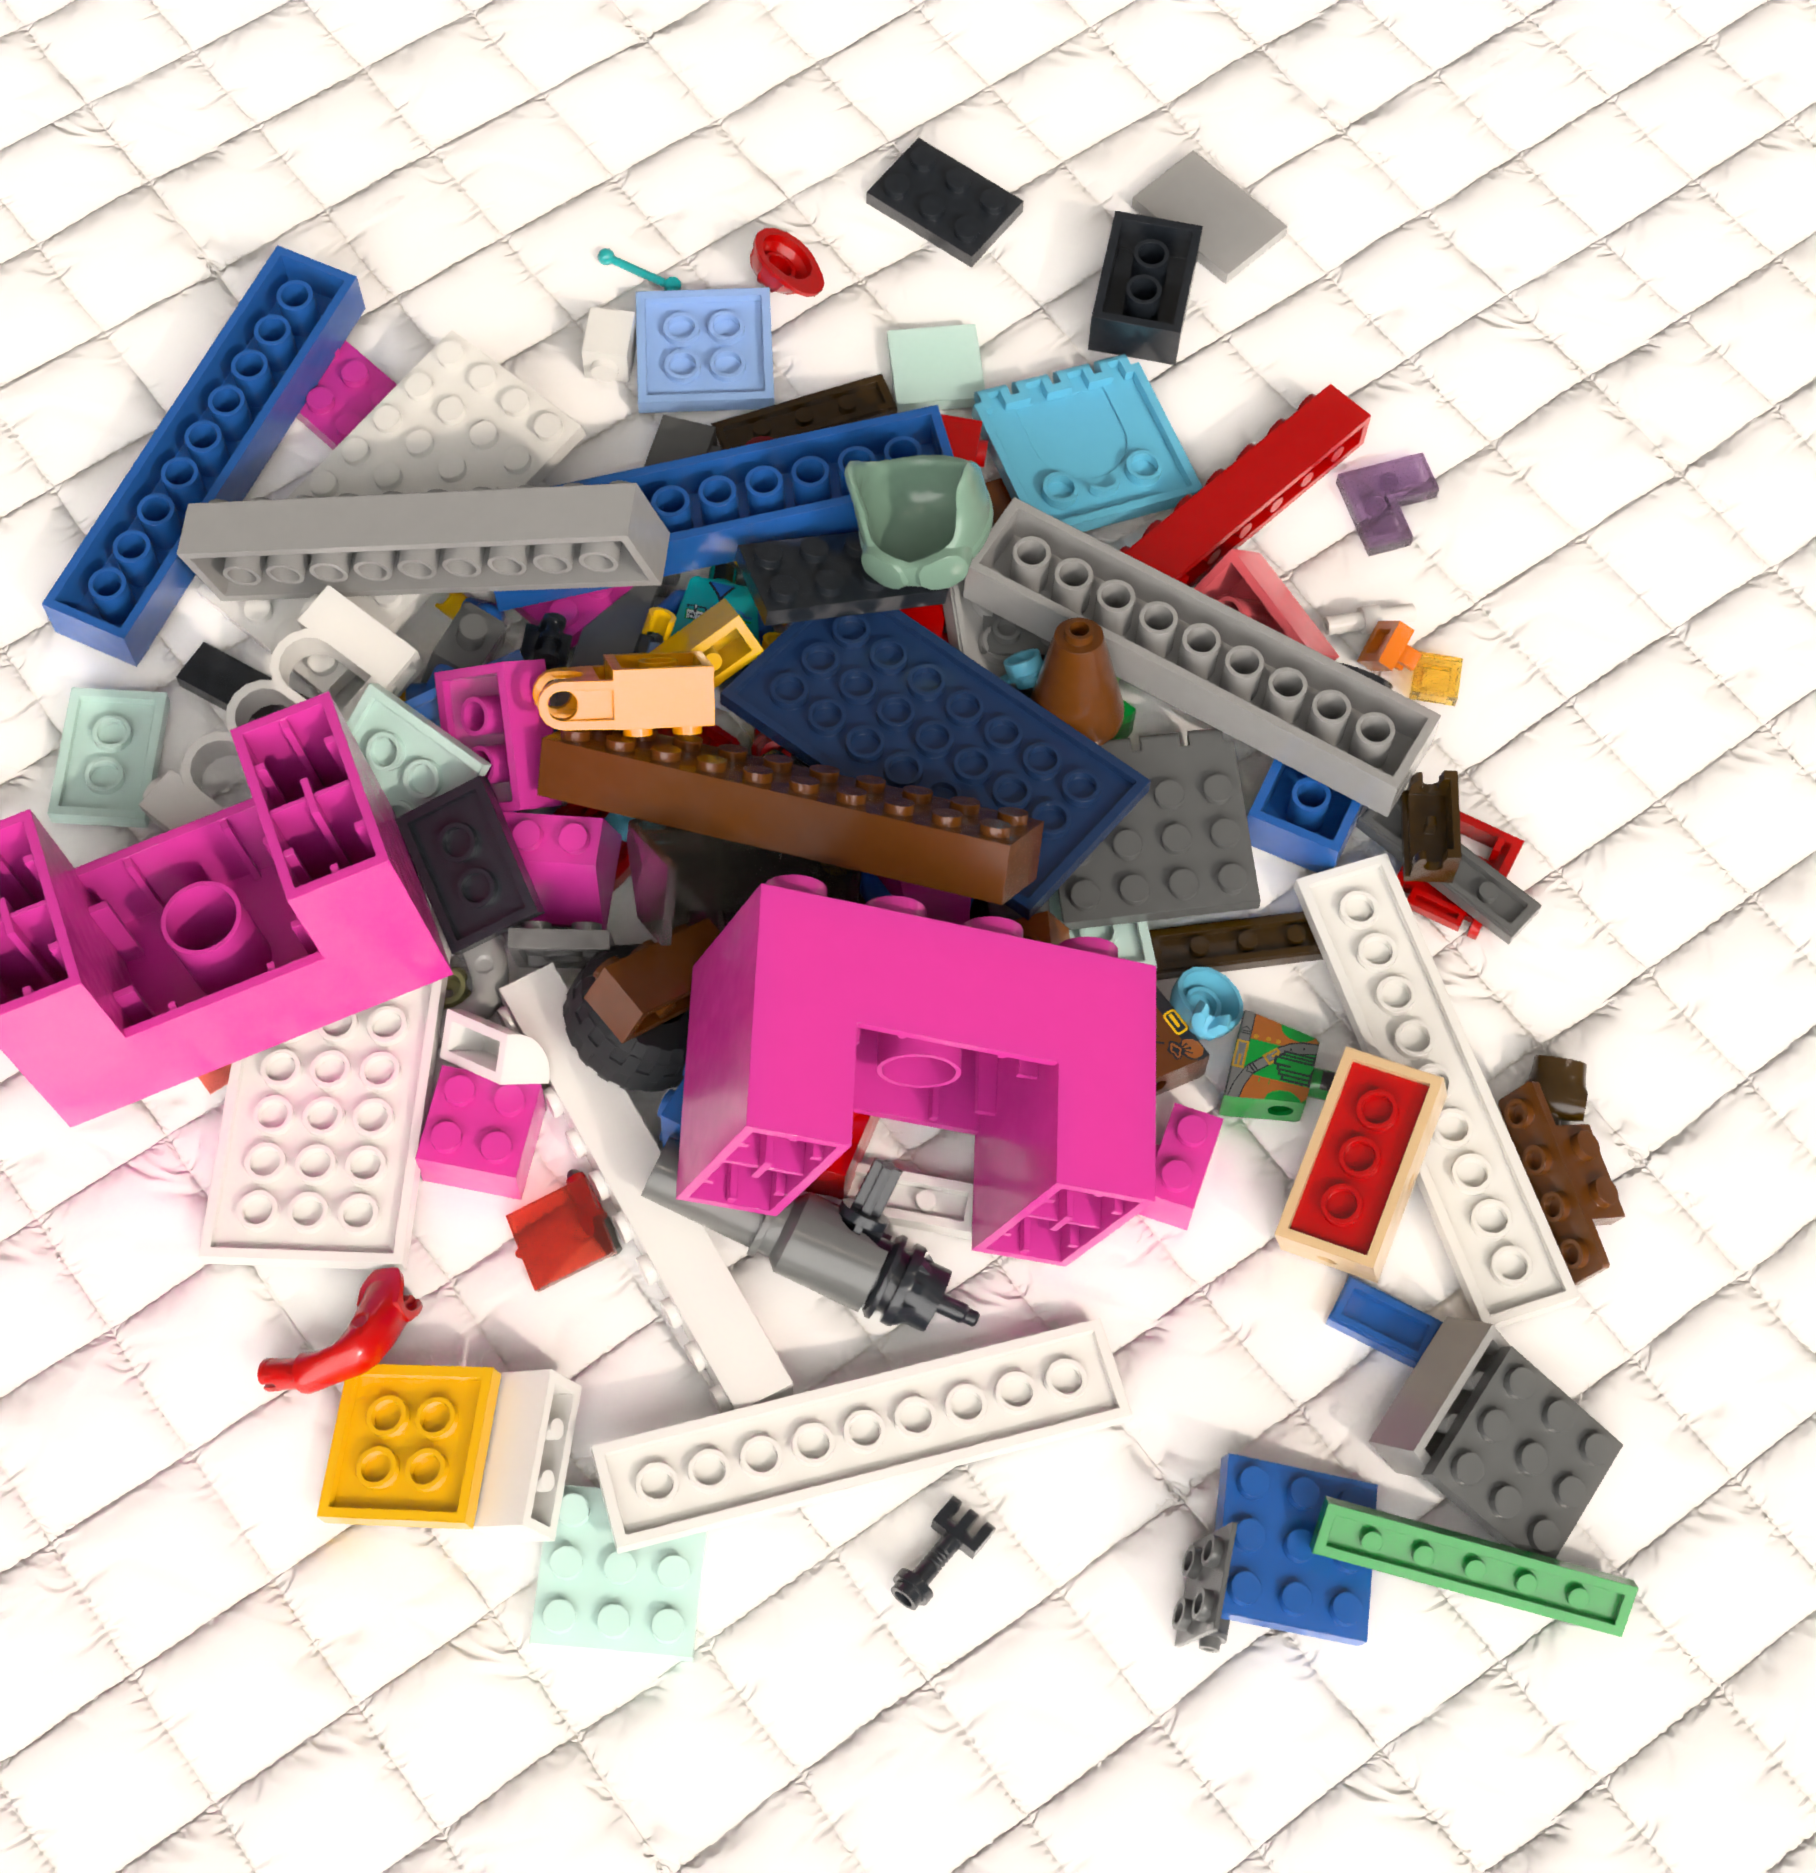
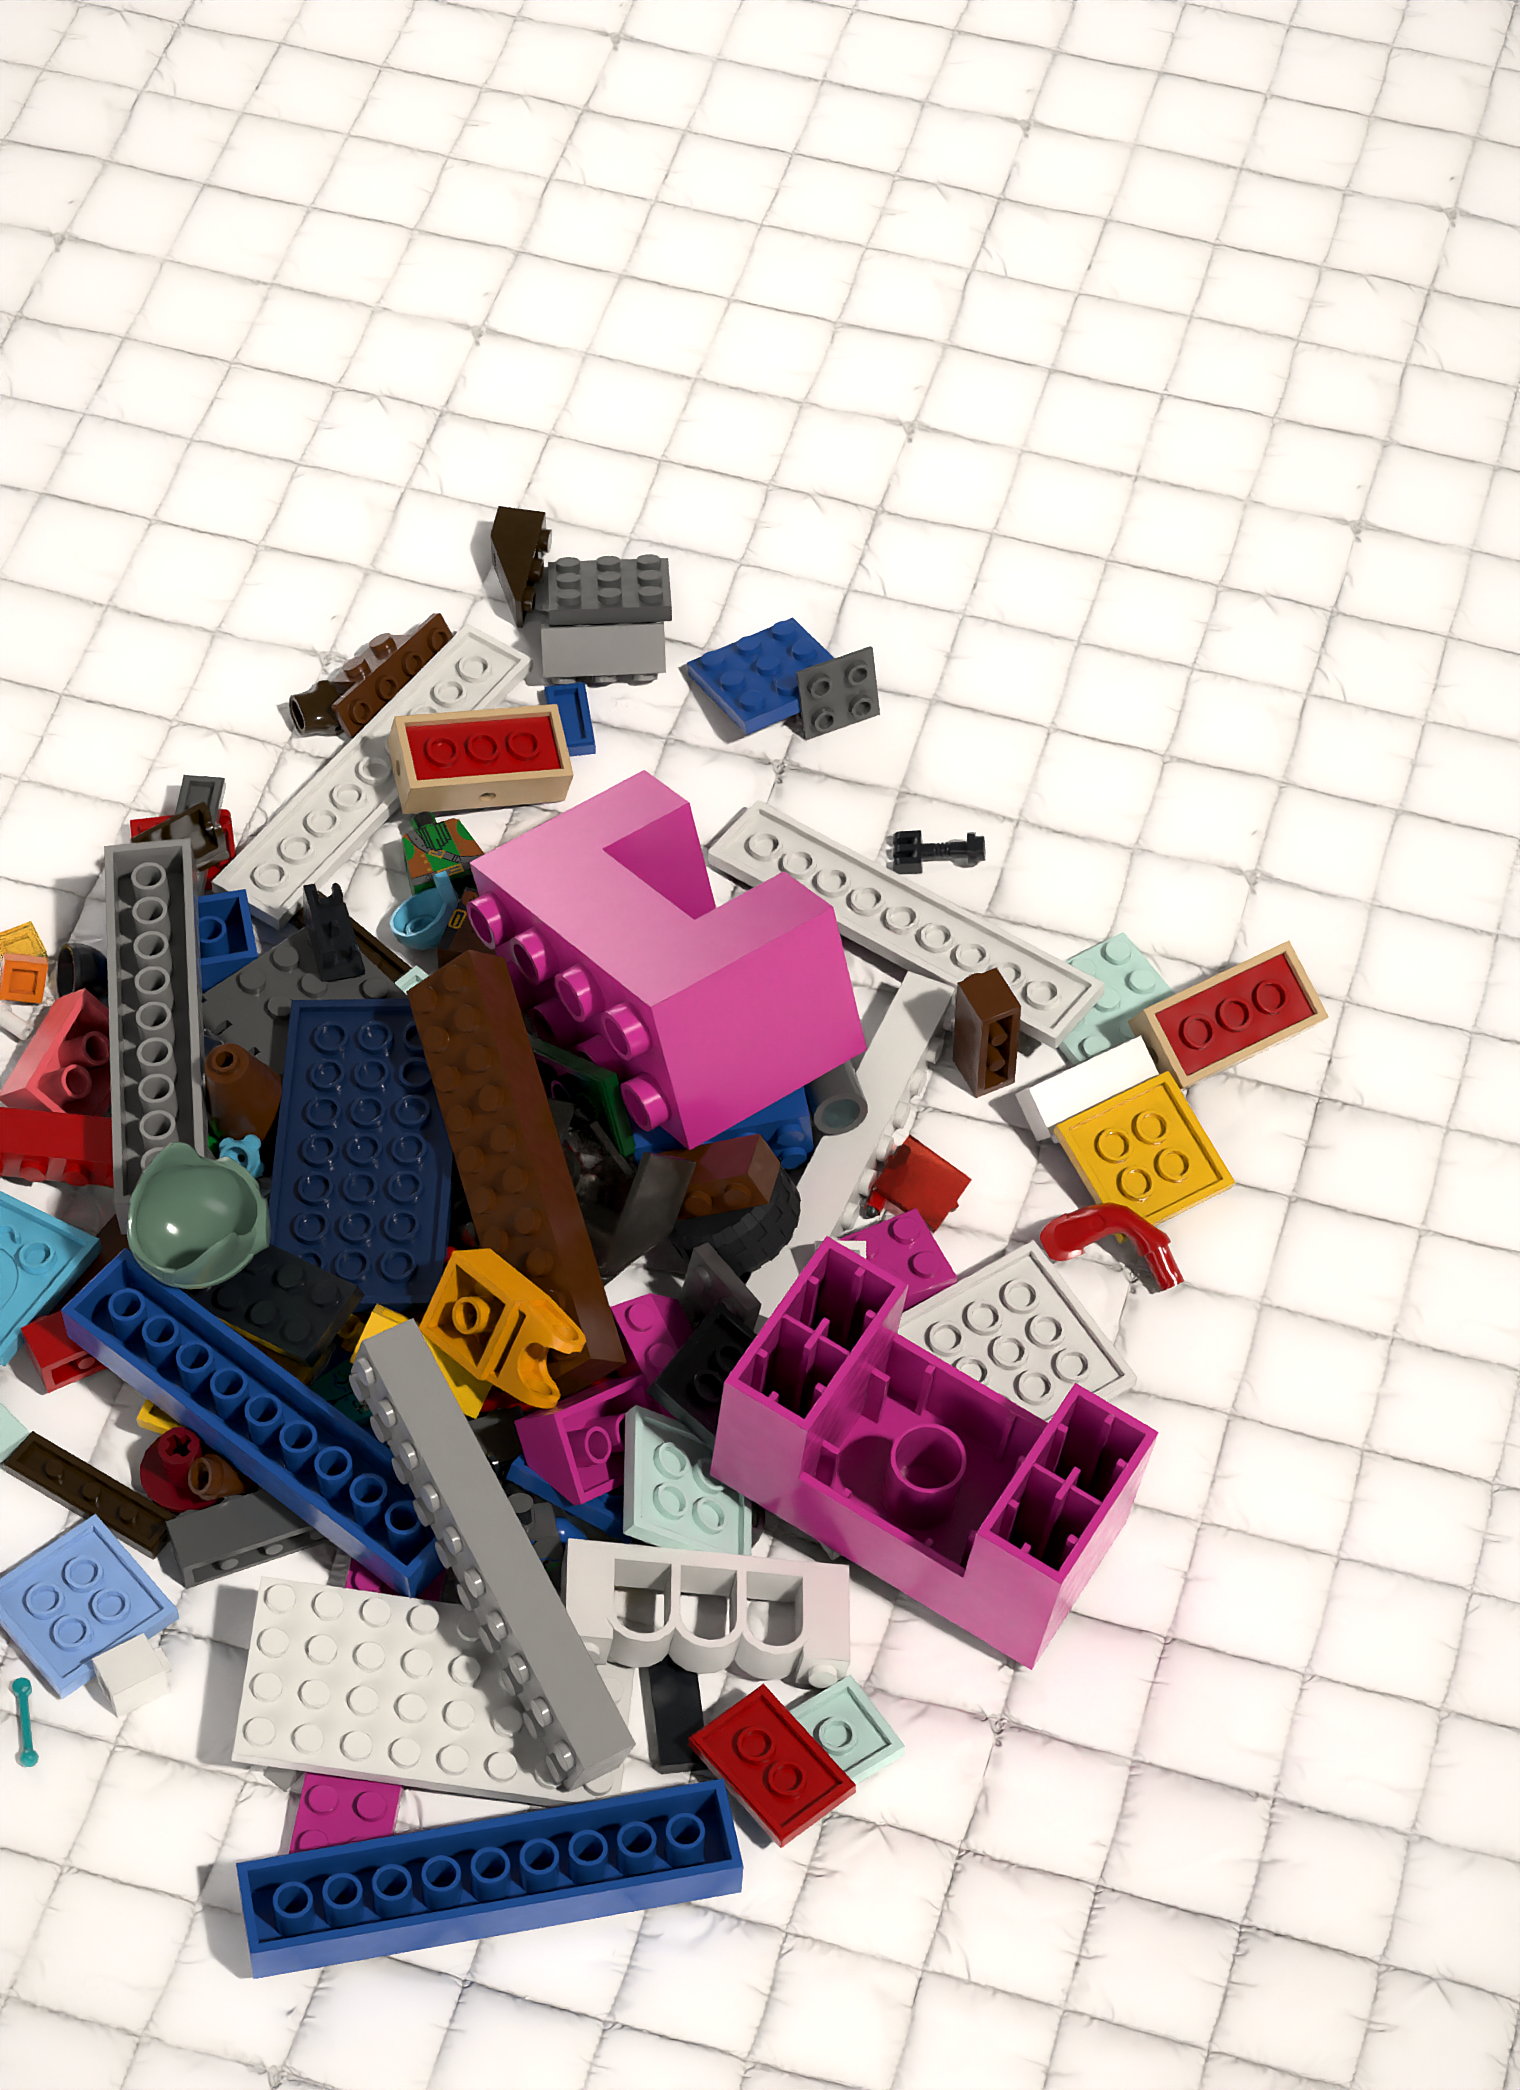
camera: 125 degrees left, 10 degrees down
(118, 702) = (772, 1765): none -> red tile
(483, 1647) = (1230, 1017): none -> red brick
(646, 1377) = (986, 1032): none -> reddish brown brick
(1214, 871) = (331, 934): none -> black hinge
(1473, 1566) = (704, 580): plate -> none
(1649, 1412) = (516, 551): none -> dark brown slope

